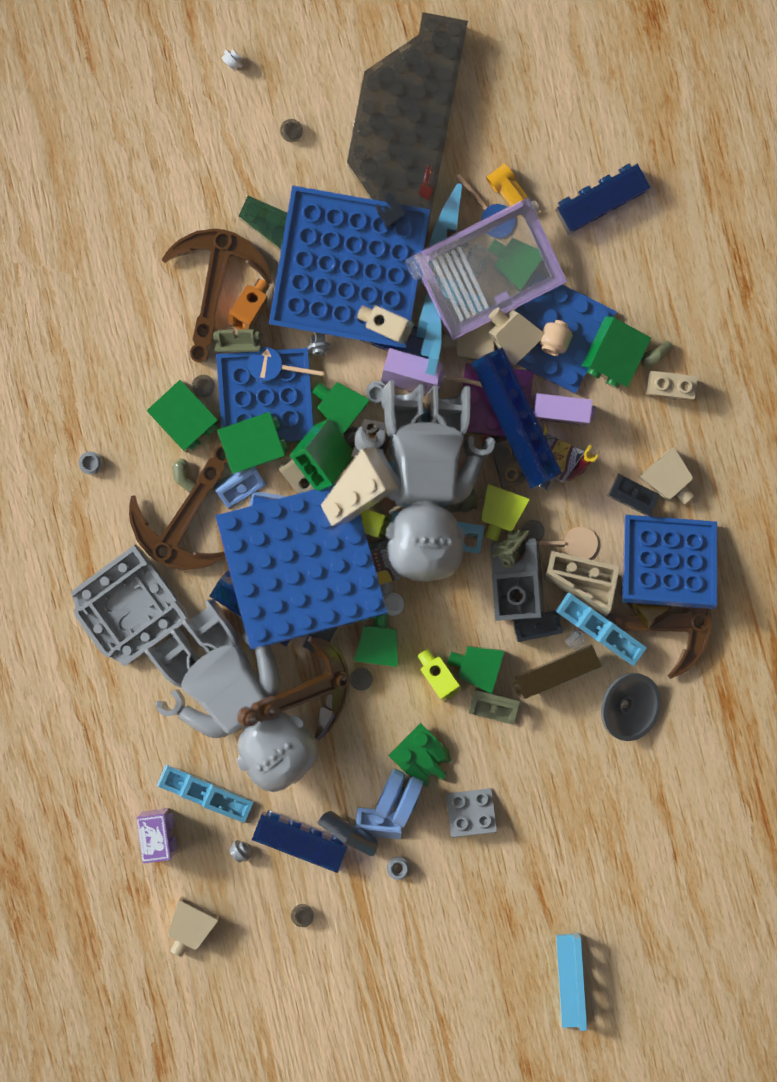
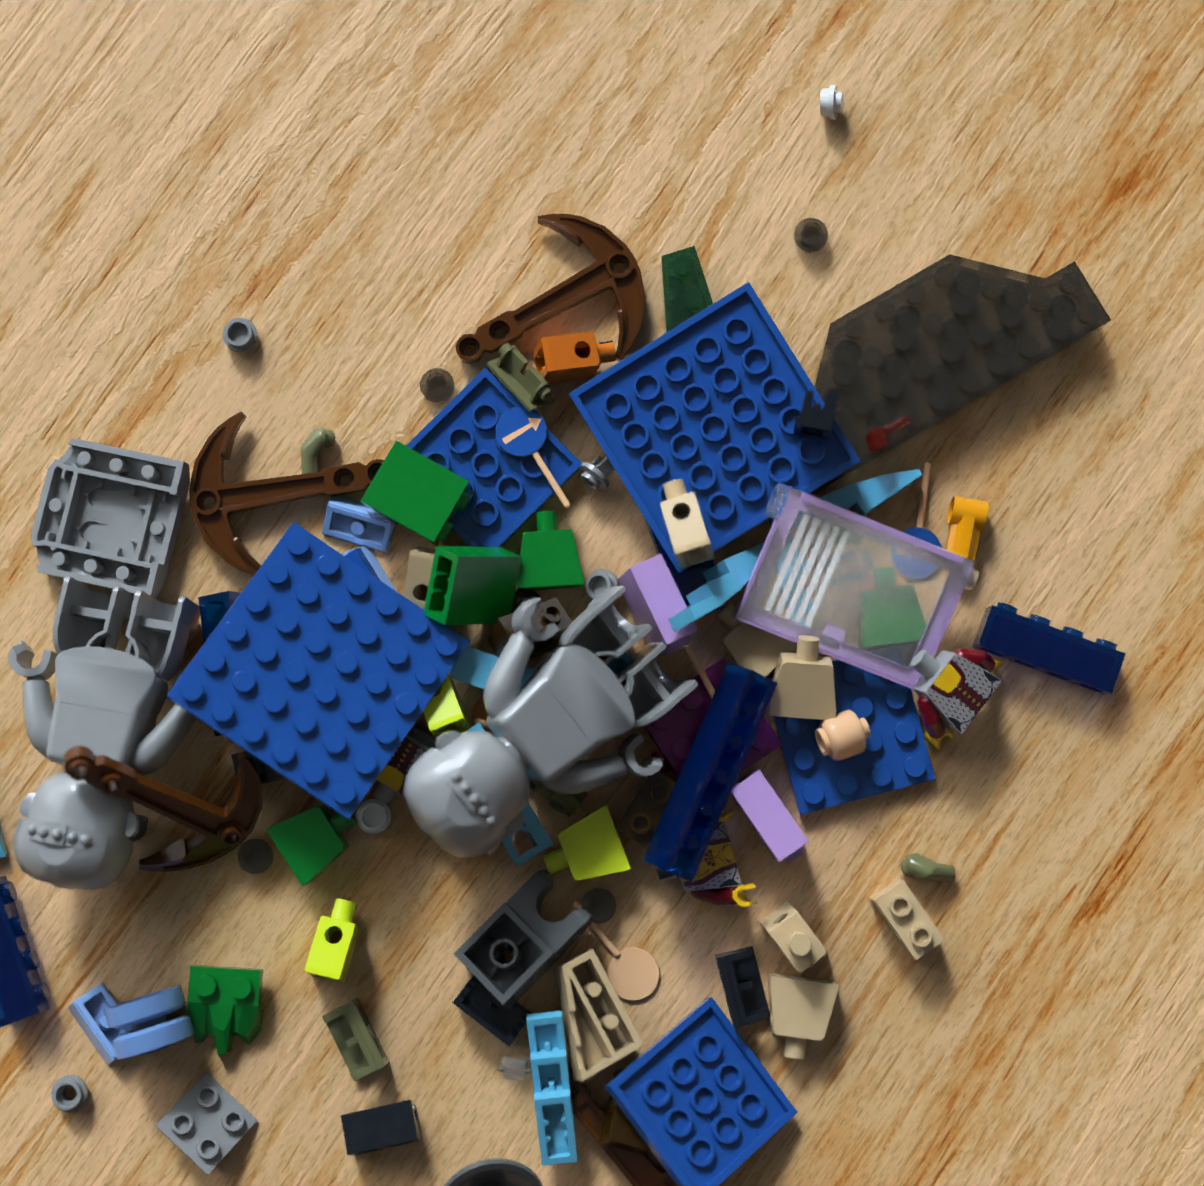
camera: 50 degrees right, 5 degrees down
(183, 416) = (382, 392): green brick -> none
(348, 833) = (55, 1001): black brick -> none
(359, 488) = (465, 658): tan wedge -> none
(478, 666) = (386, 979): green torso -> none
(512, 547) = (556, 898): olive hinge -> none
(547, 730) = (381, 1127): none -> black hinge
(556, 672) = (456, 1080): dark brown brick -> none
(580, 263) = (953, 689): none -> torso
(615, 352) = (888, 820): green brick -> none
(632, 449) = (794, 937): none -> tan torso

